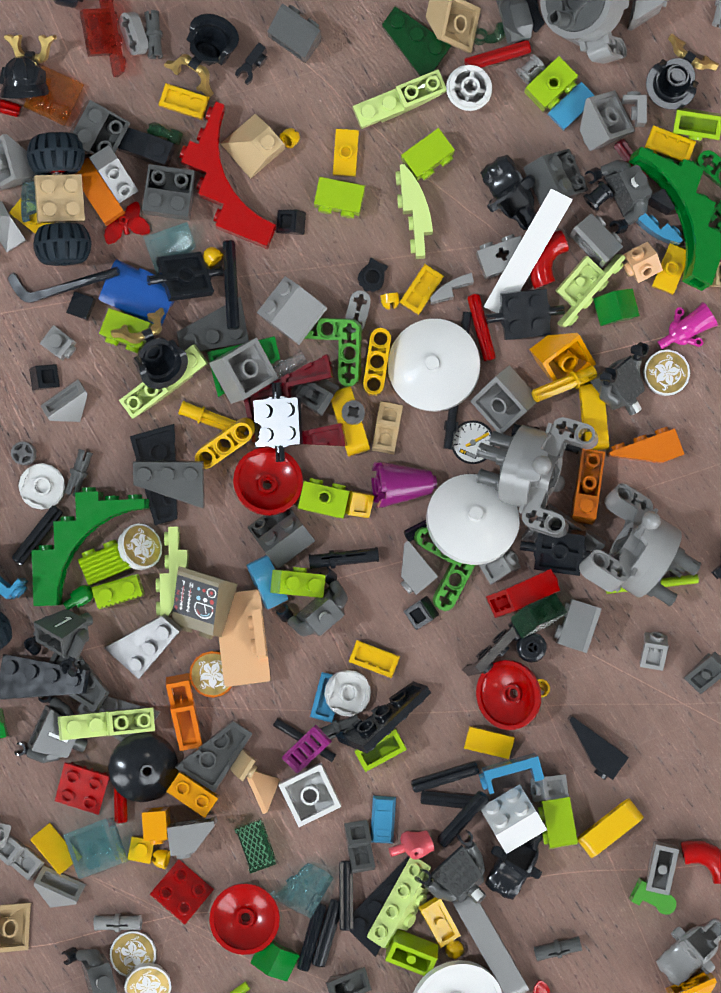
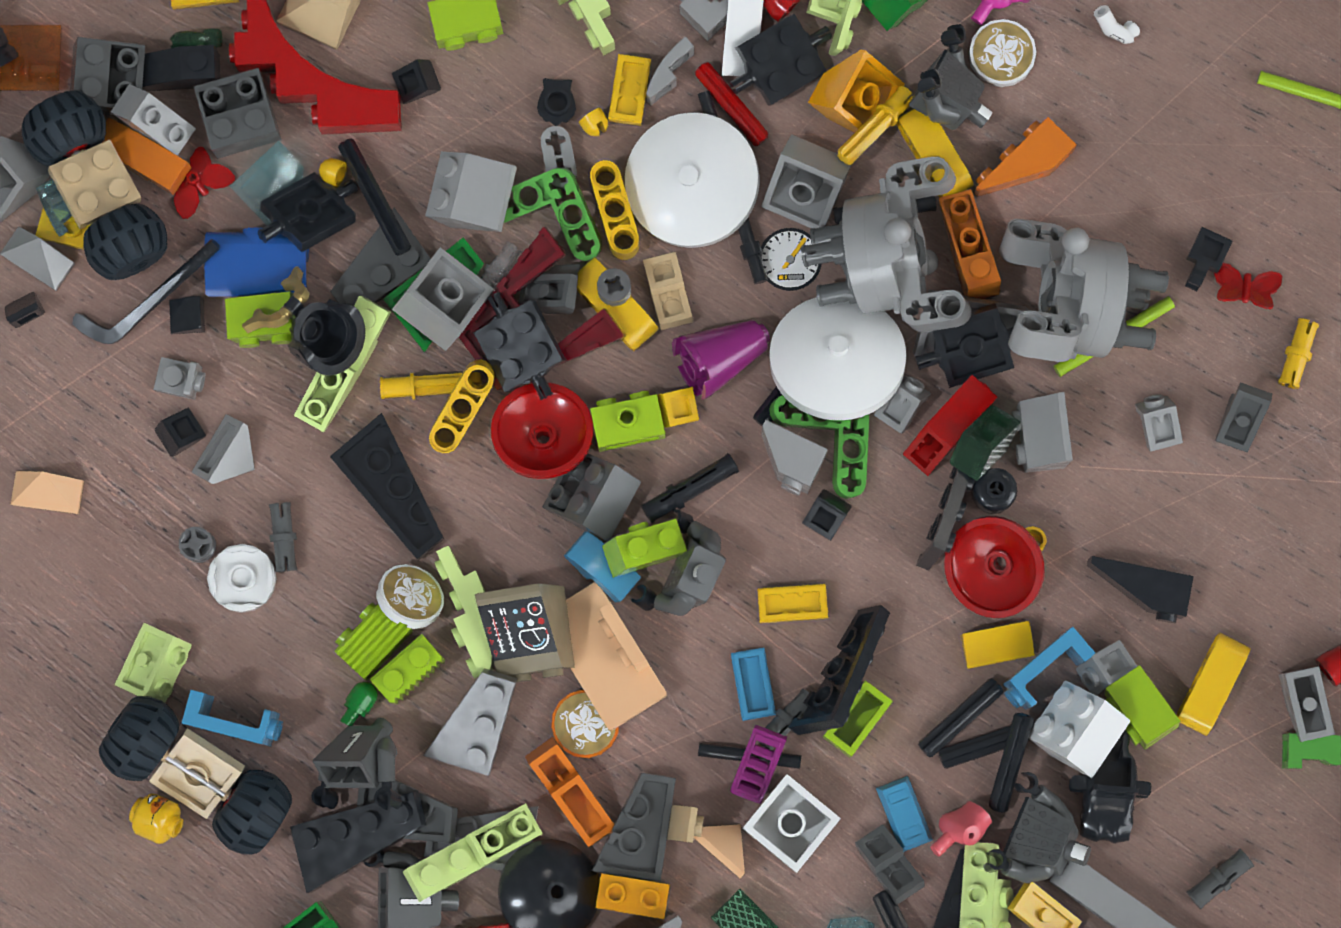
camera: 25 degrees left, 5 degrees down
(37, 535) = (264, 645): black axle -> none
(51, 564) = (325, 579): green arch -> none
(173, 479) = (413, 485): dark grey wing -> none
(347, 693) = (778, 665): white tile -> none

